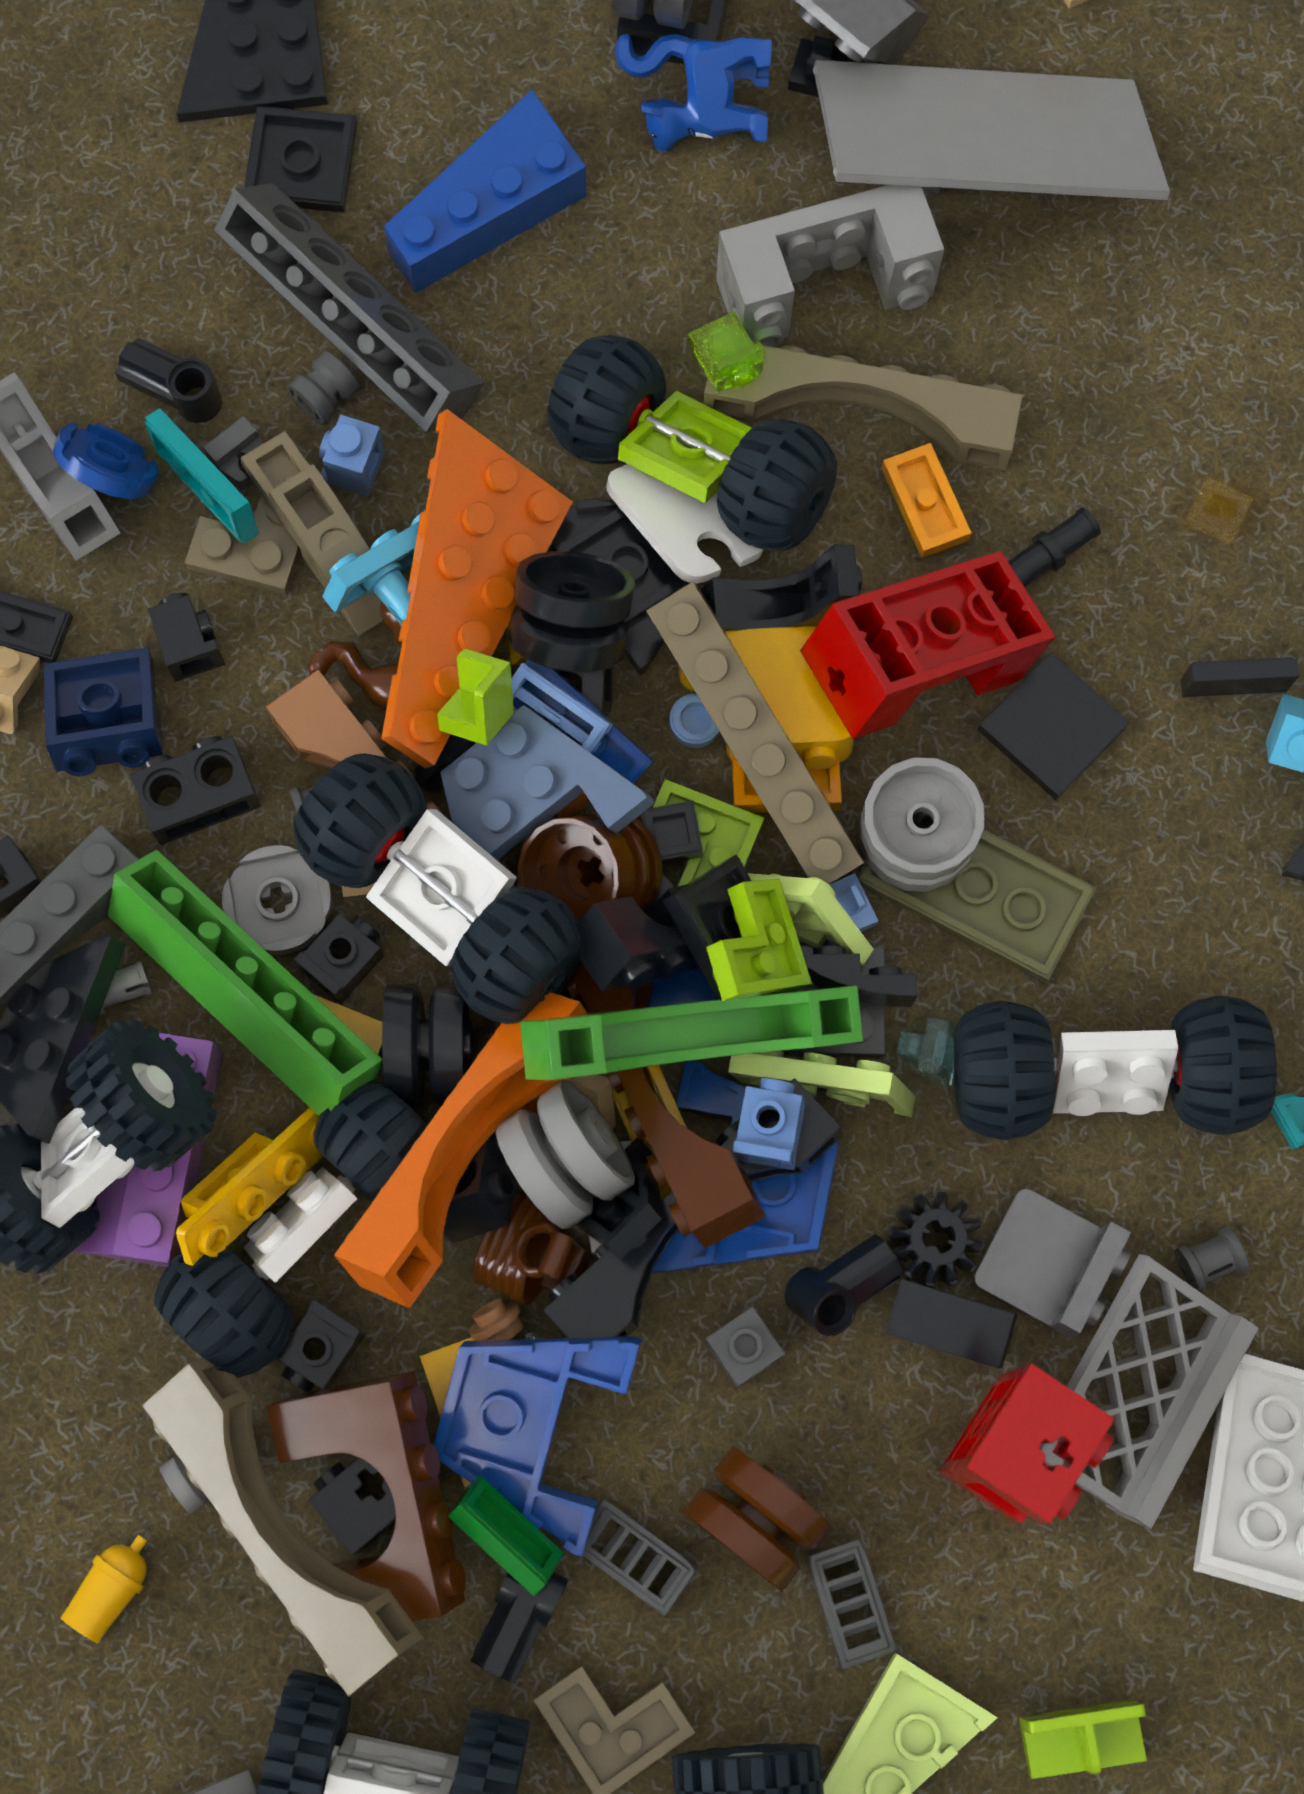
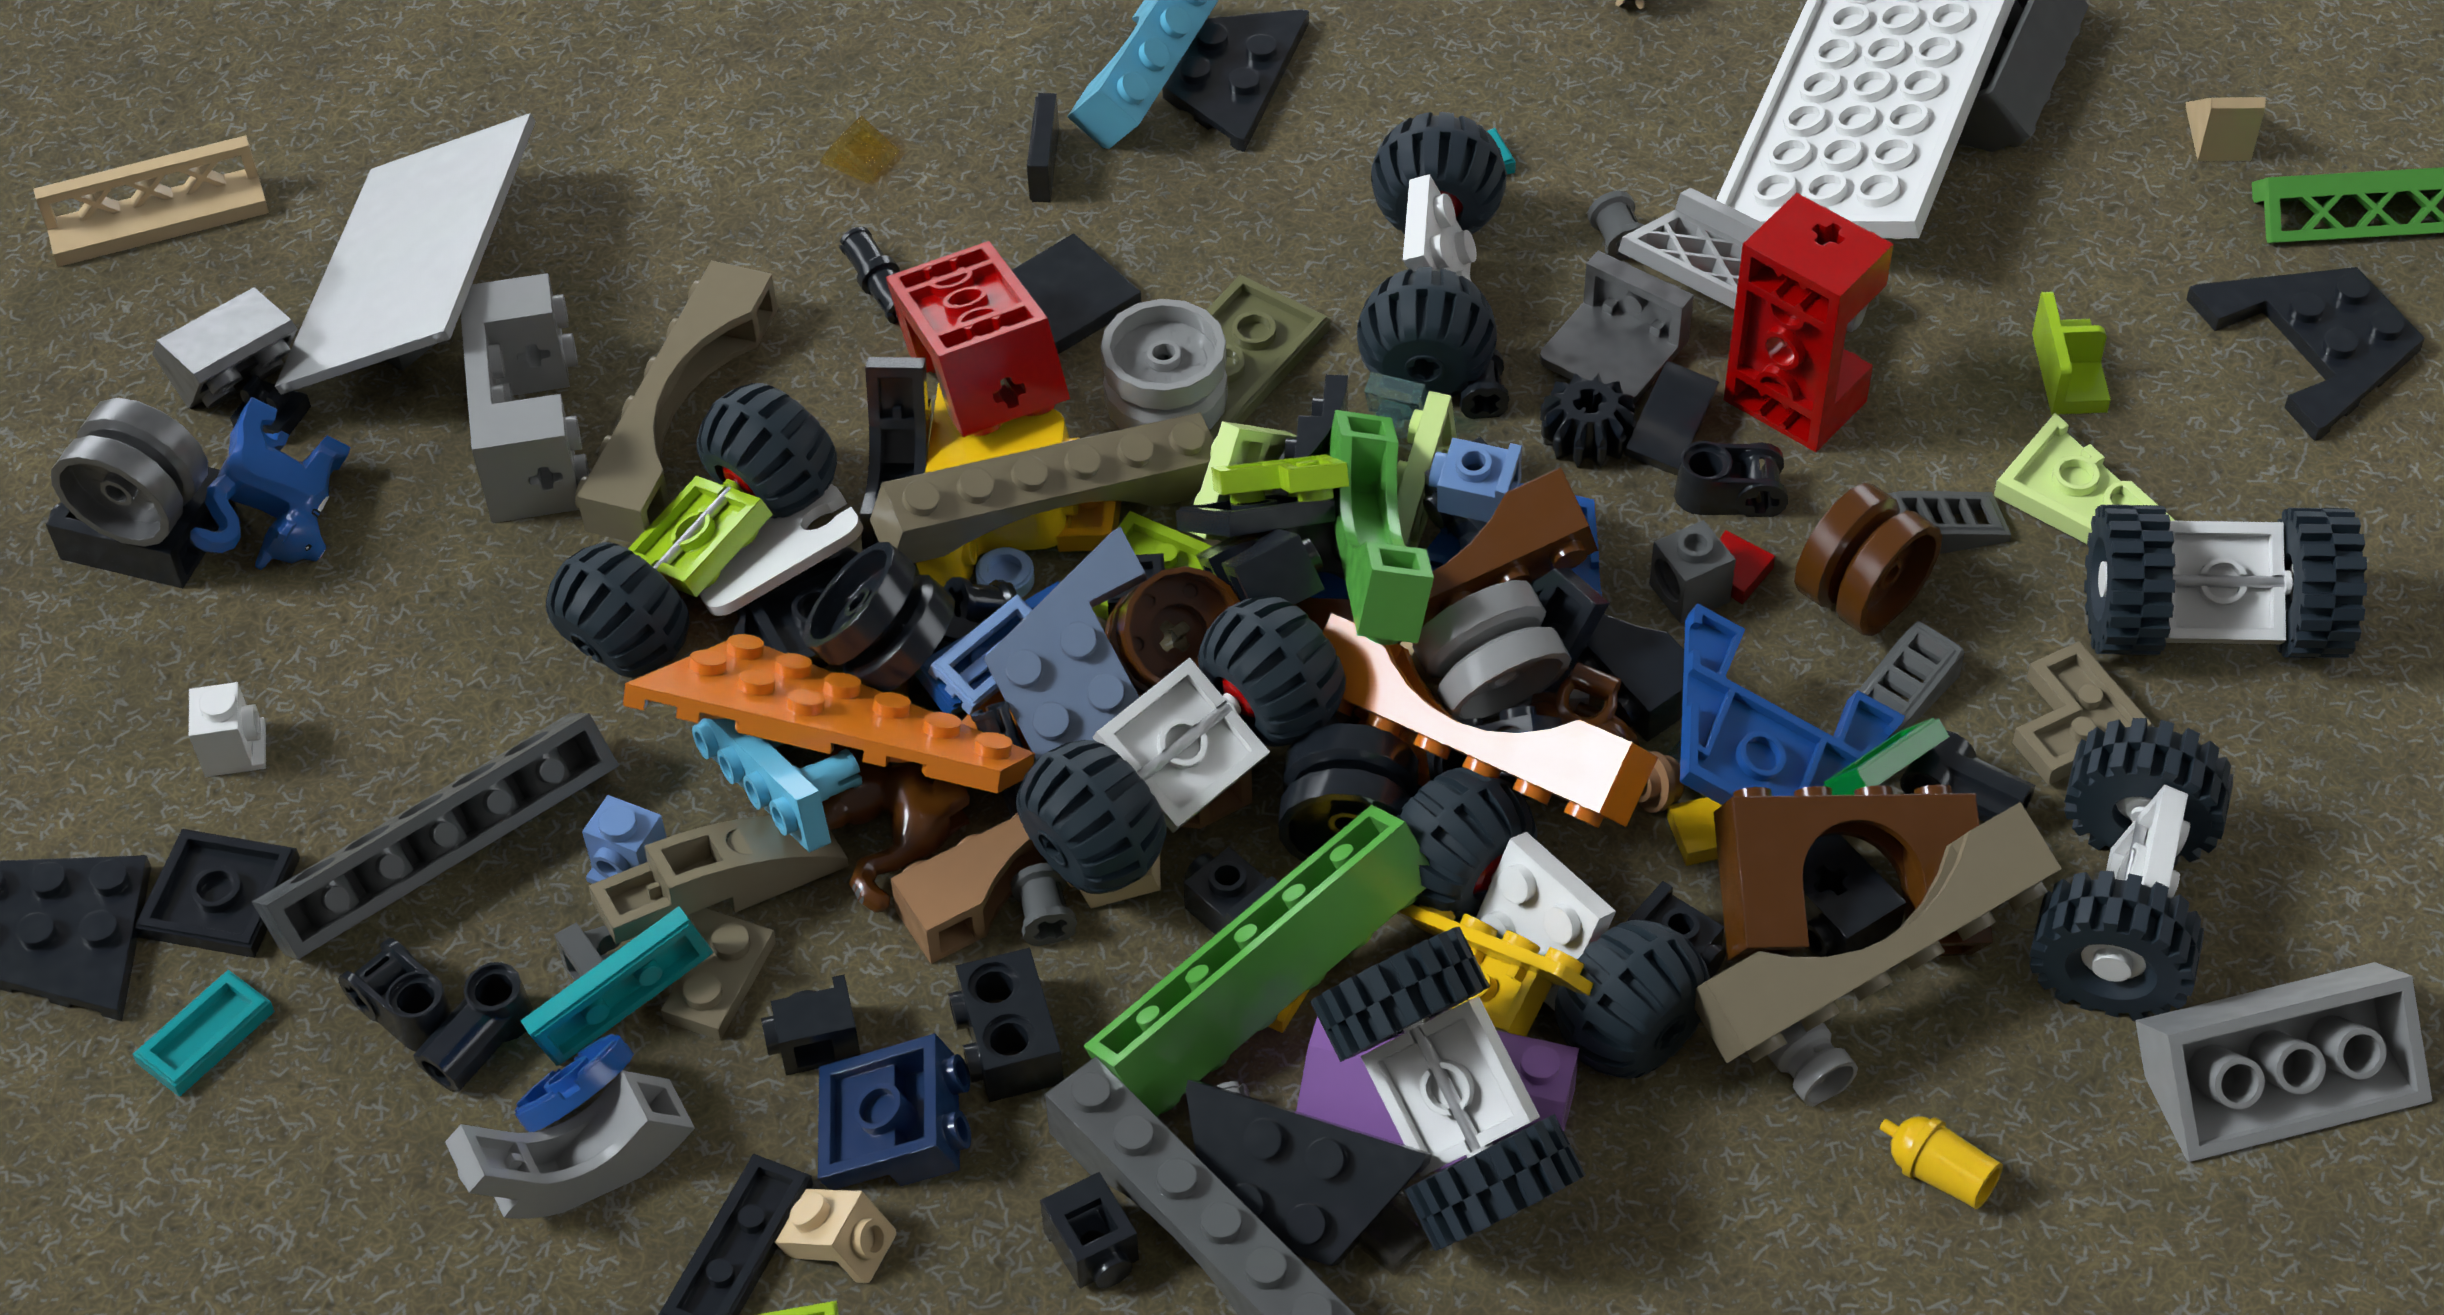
camera: 80 degrees left, 25 degrees down
(166, 183) = (203, 1032): none -> teal tile
(203, 308) = (398, 994): none -> black piece
(252, 884) = (1125, 941): light grey plate -> none
(319, 391) = (536, 880): dark grey wheel -> none
(447, 119) = (226, 730): none -> white brick
(482, 701) = (974, 679): lime panel -> none
(487, 196) = (329, 691): blue wedge -> none
(640, 700) = (978, 601): none -> black bush
(727, 353) = (605, 479): clear neon green bracket -> none
(774, 1397) = (1751, 565): none -> red tile
(831, 1296) = (1639, 497): black piece -> none
(874, 1390) = (1729, 478): none -> black piece
(926, 500) = (803, 360): light orange plate -> none
(965, 1141) = (1486, 395): none -> black bush

